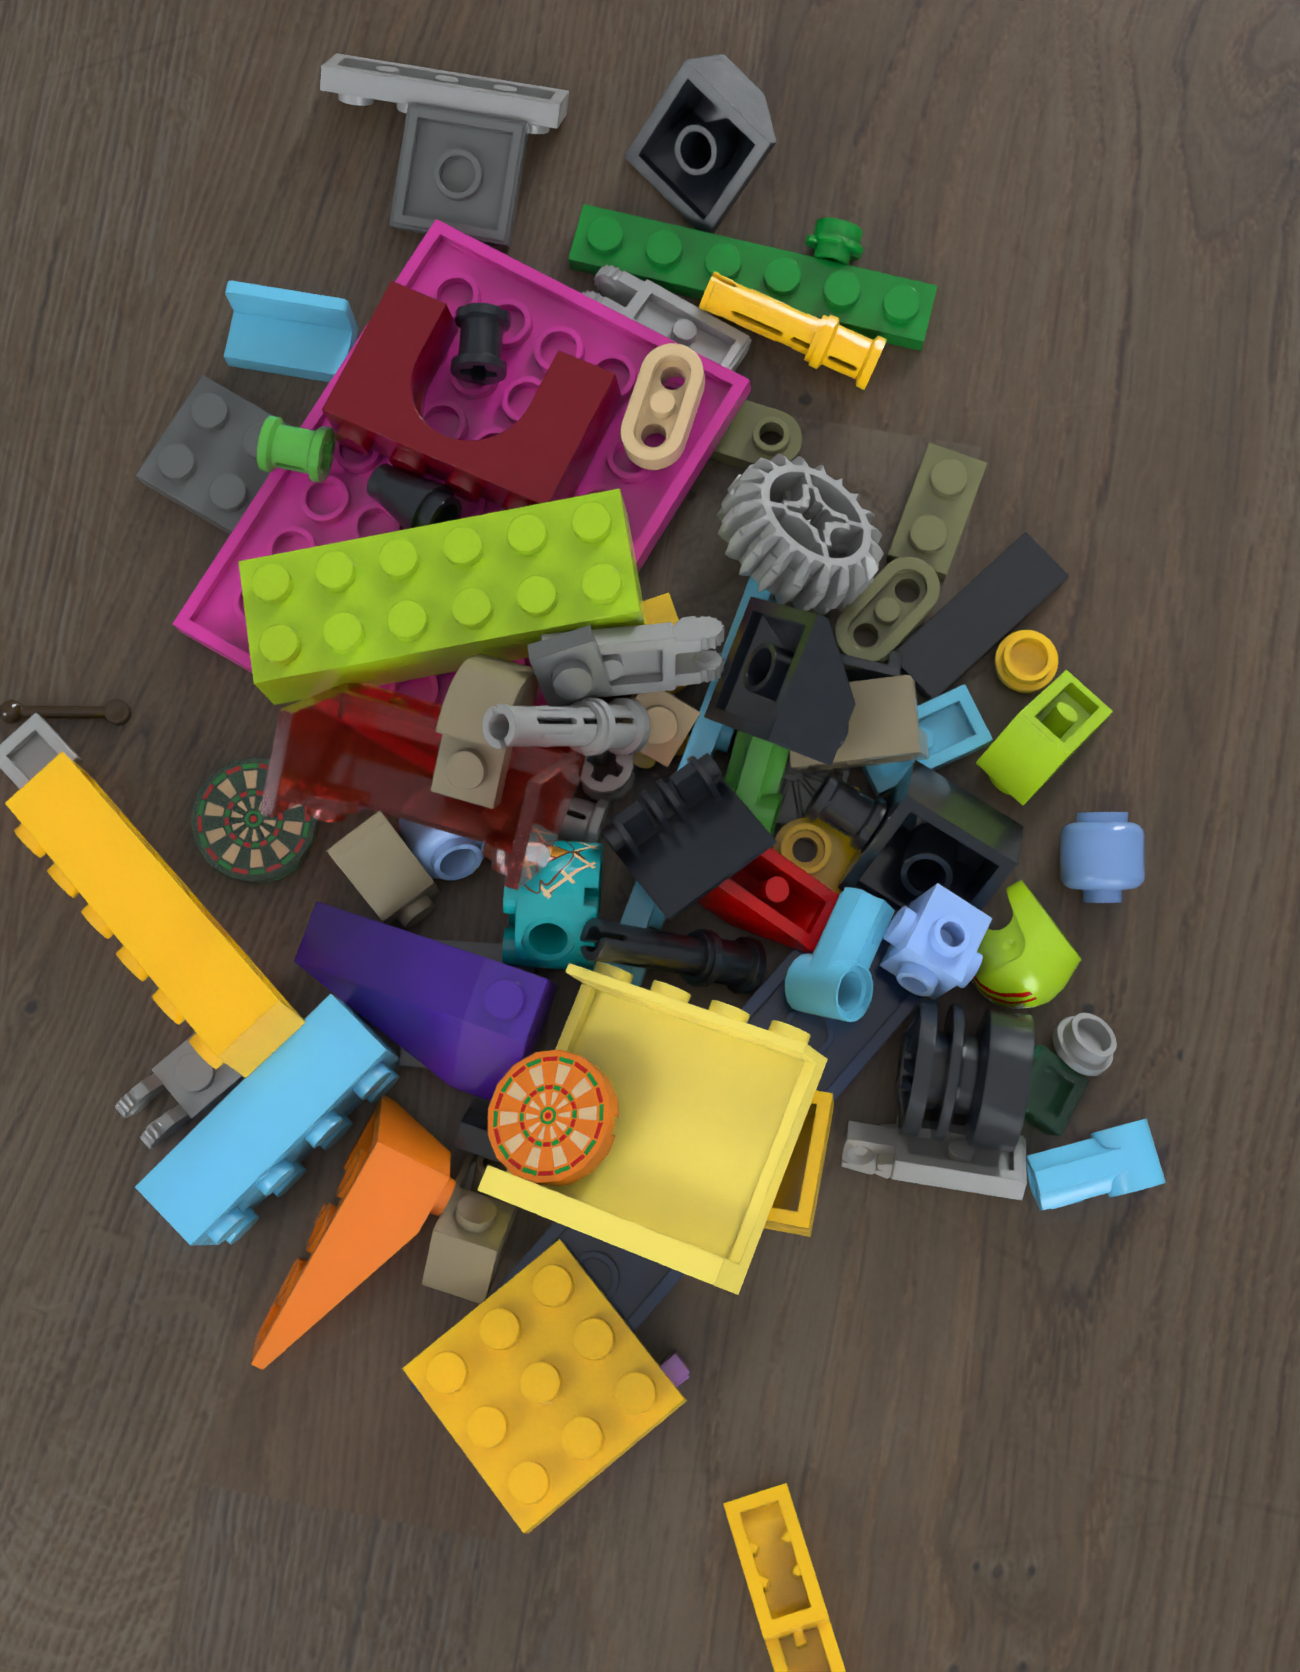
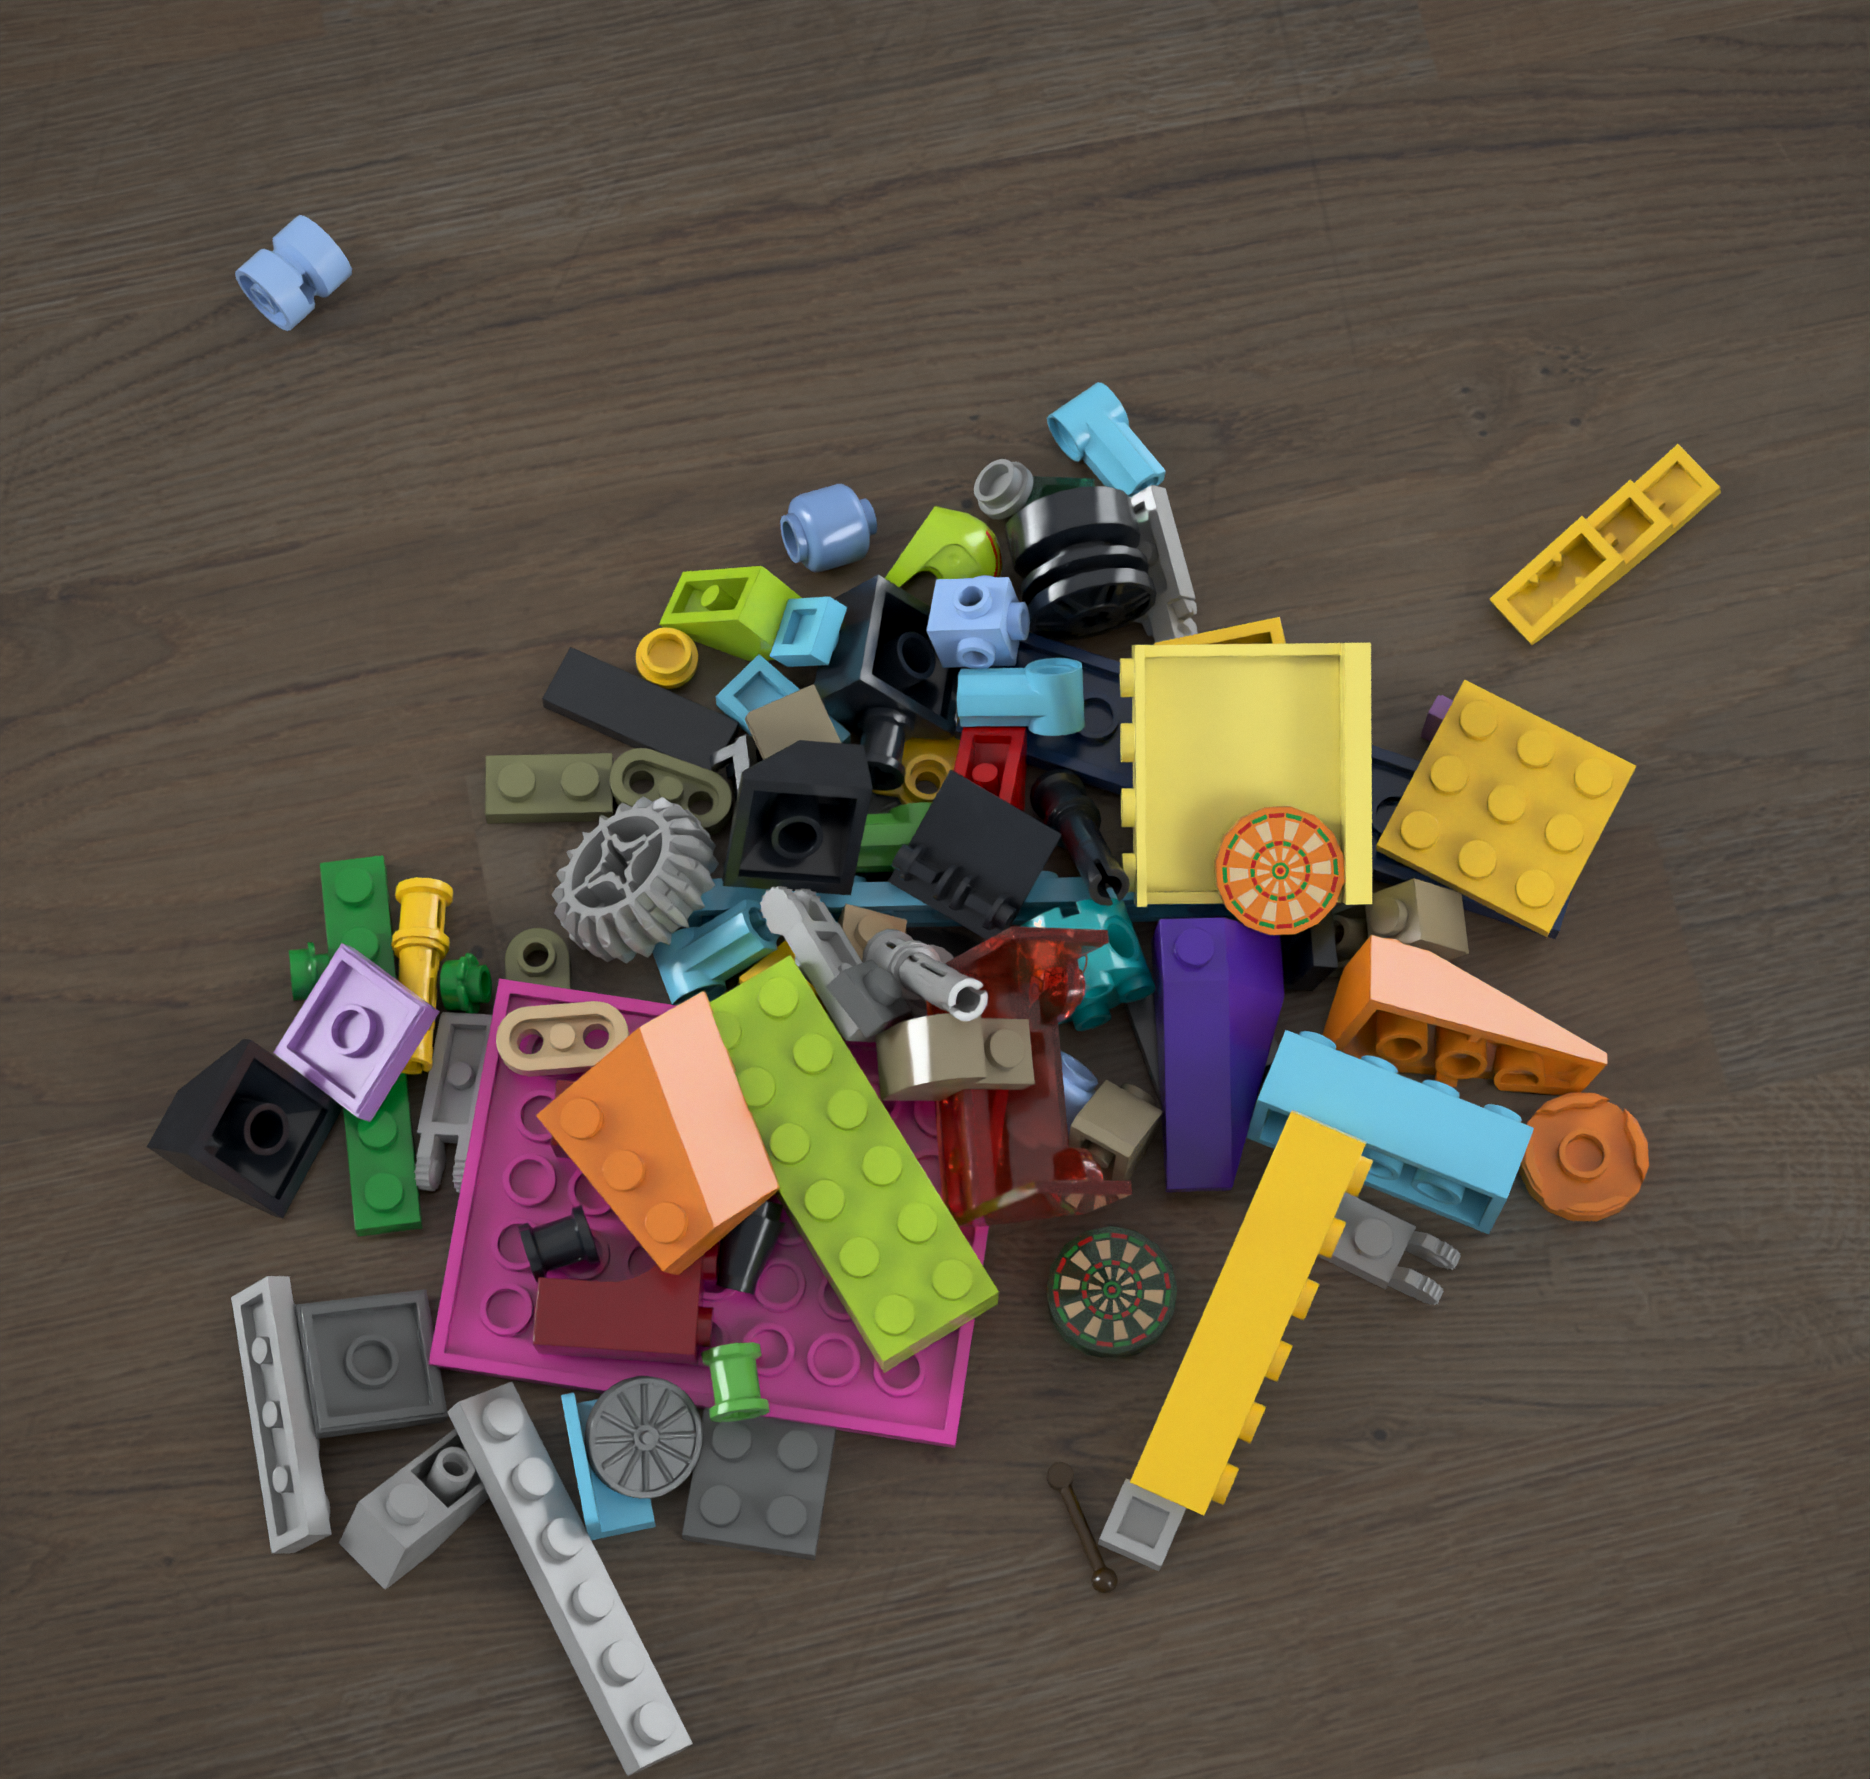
camera: 120 degrees left, 10 degrees down
(194, 1310) = (1584, 1157): none -> orange tile
(201, 265) = (569, 1578): none -> light grey plate
(289, 362) = (643, 1437): none -> dark grey wheel
(327, 198) = (414, 1511): none -> light grey slope
(502, 430) = (667, 1136): none -> orange wedge
(706, 579) = (713, 953): none -> medium azure piece
(754, 251) = (356, 1032): none -> tile
(770, 367) = (465, 984): none -> green plate
(987, 781) = (808, 631): none -> medium azure plate

